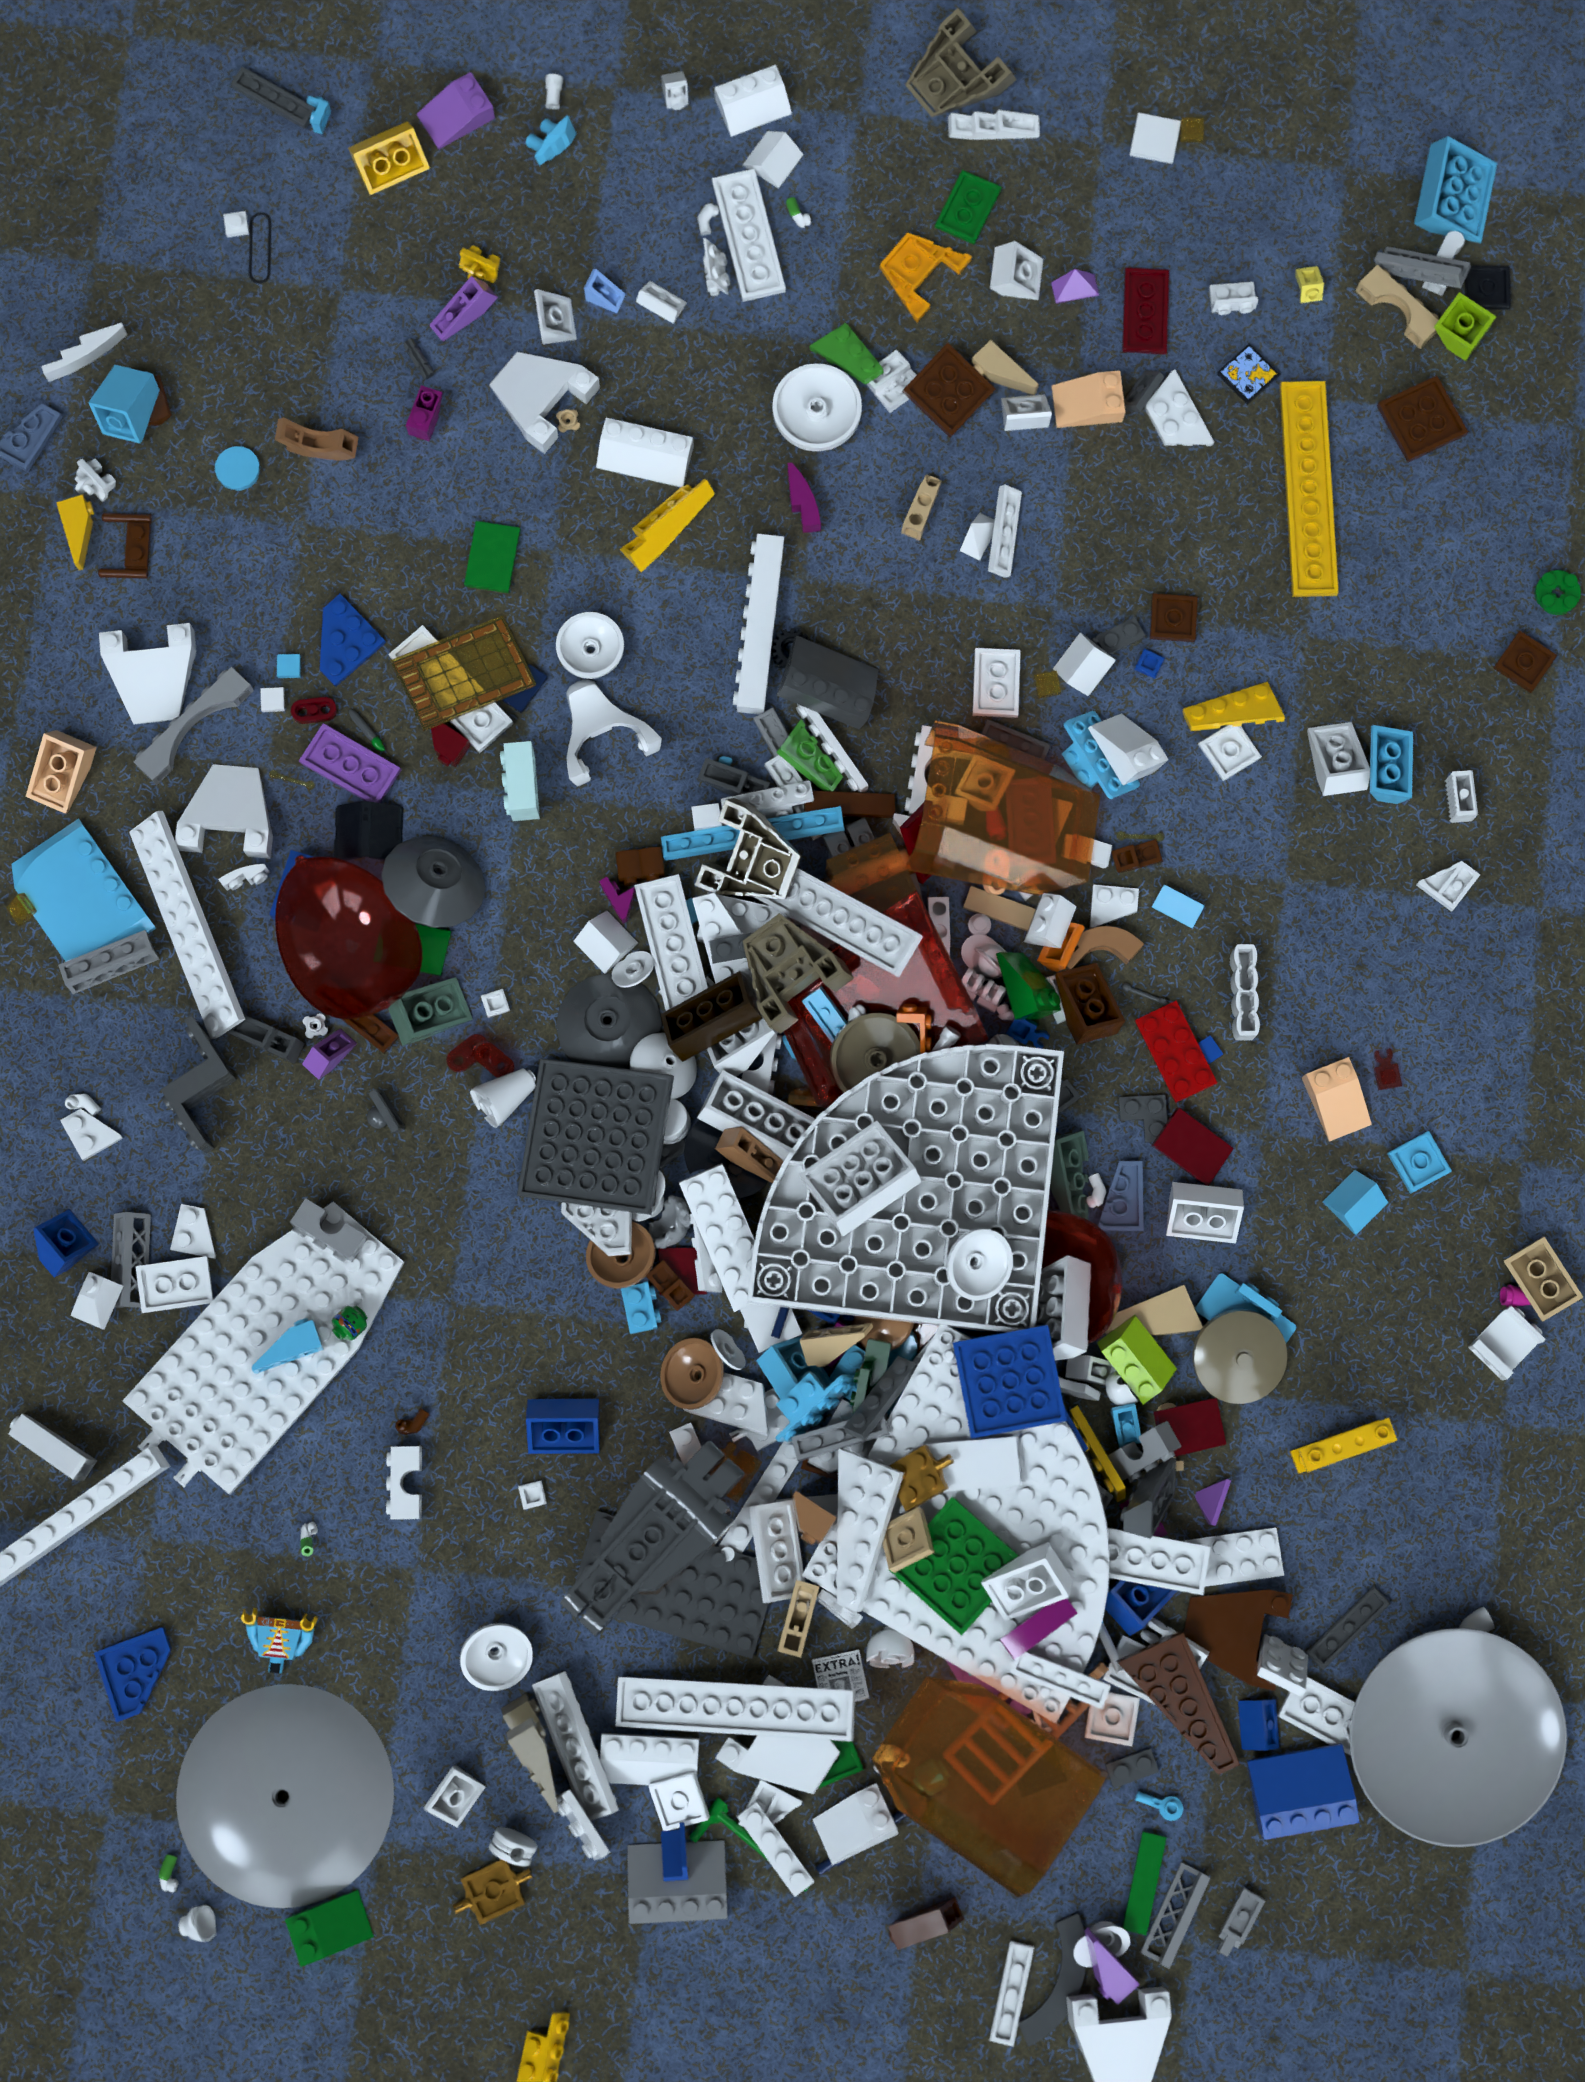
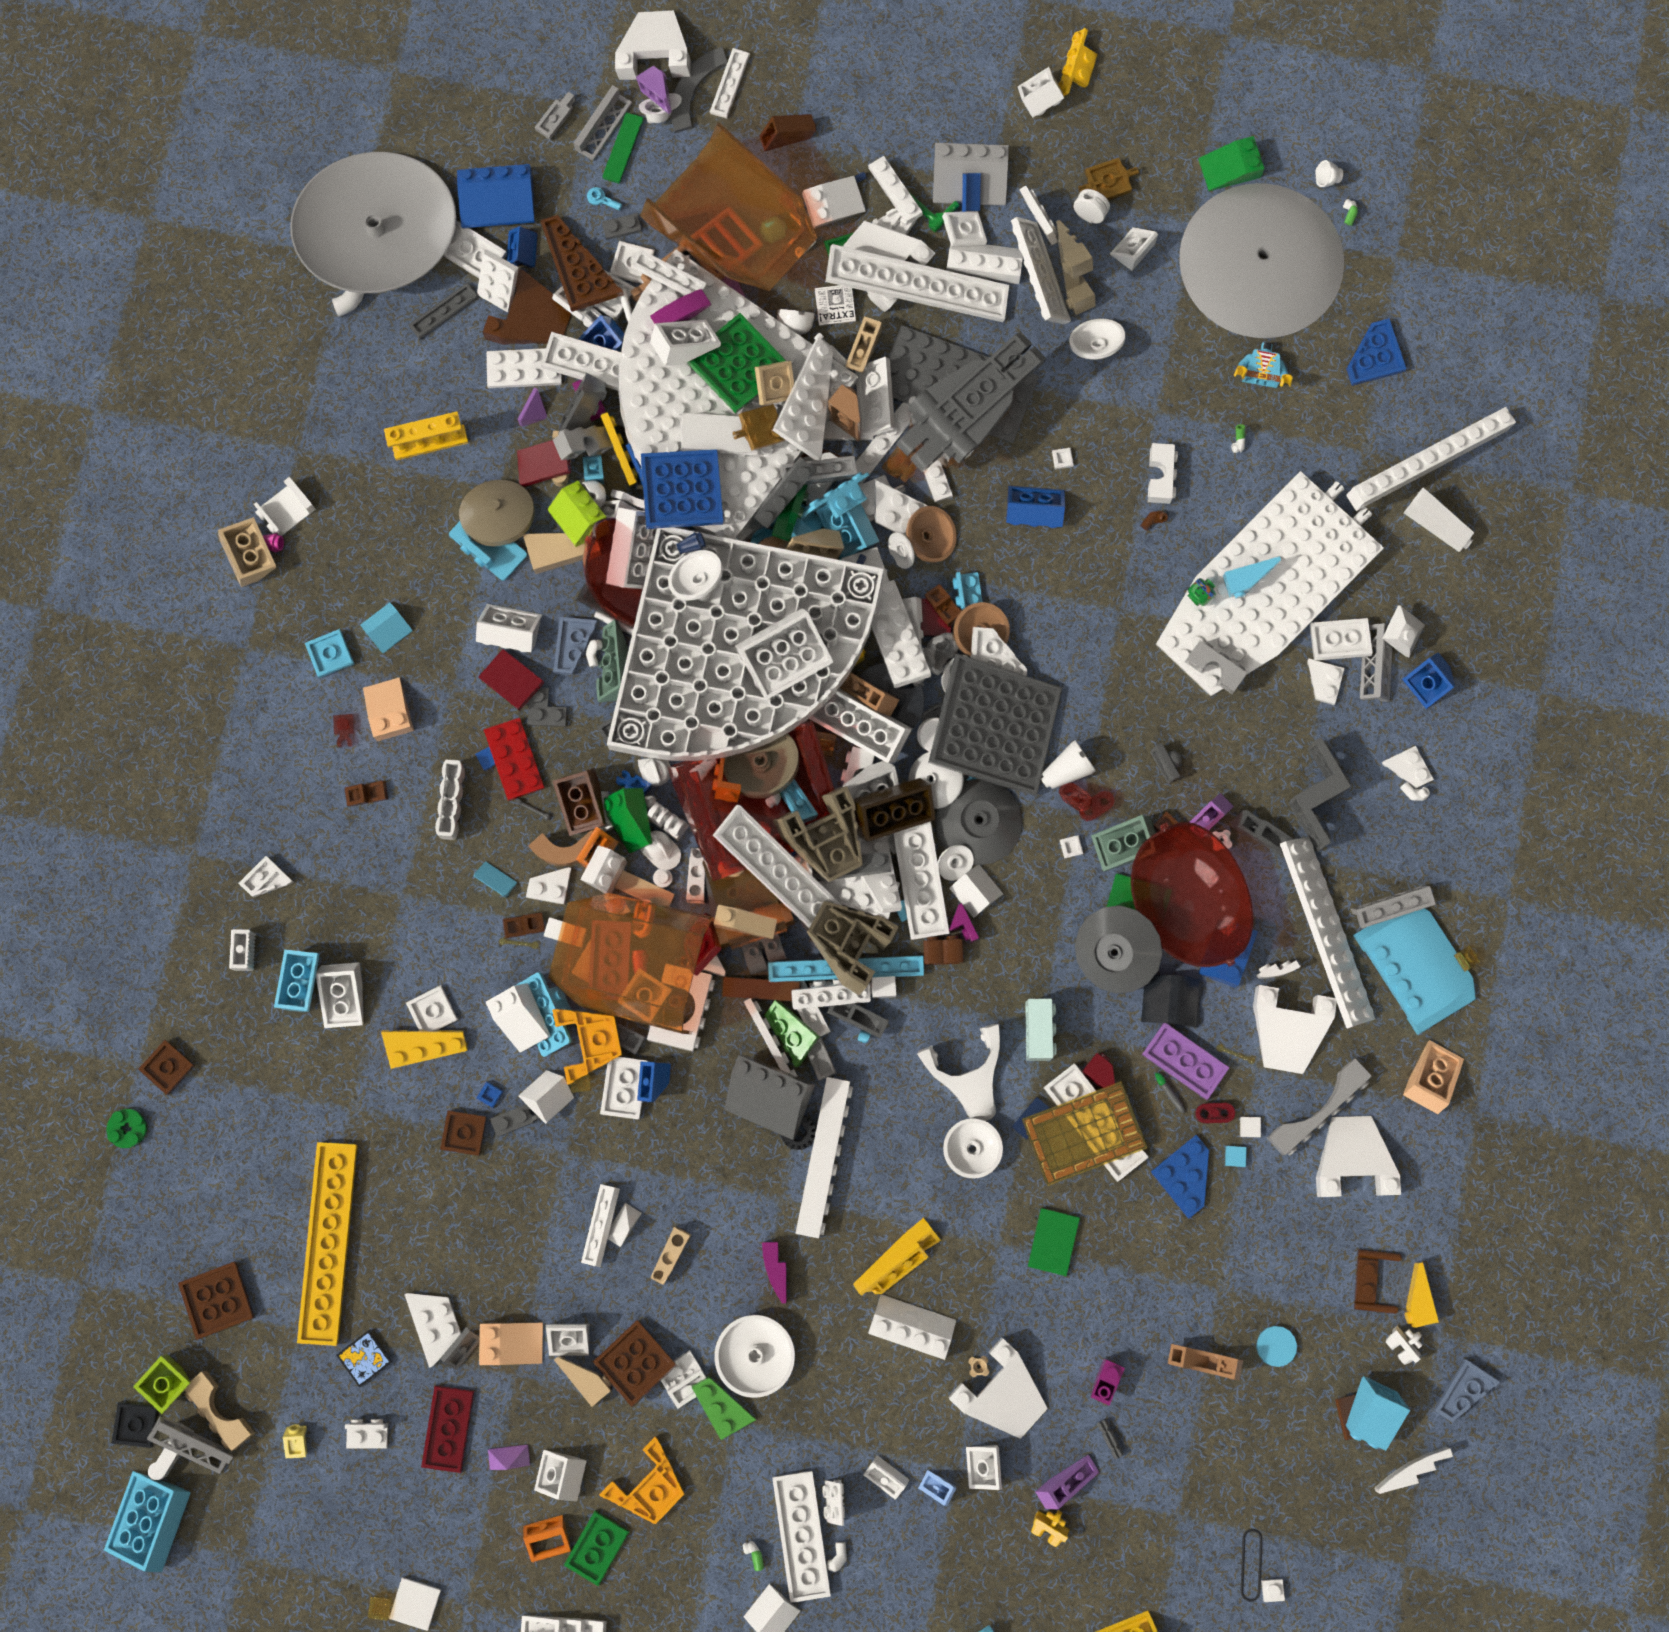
camera: 170 degrees left, 0 degrees up
(591, 2011) = (1040, 92): none -> white slope
(875, 855) = (744, 922): none -> tan slope
(963, 690) = (652, 1080): none -> blue slope
(987, 1310) = (691, 543): none -> dark blue cone
(1025, 217) = (544, 1530): none -> orange tile
(1034, 729) = (597, 1040): none -> light orange wing
(1346, 995) = (366, 793): none -> reddish brown slope

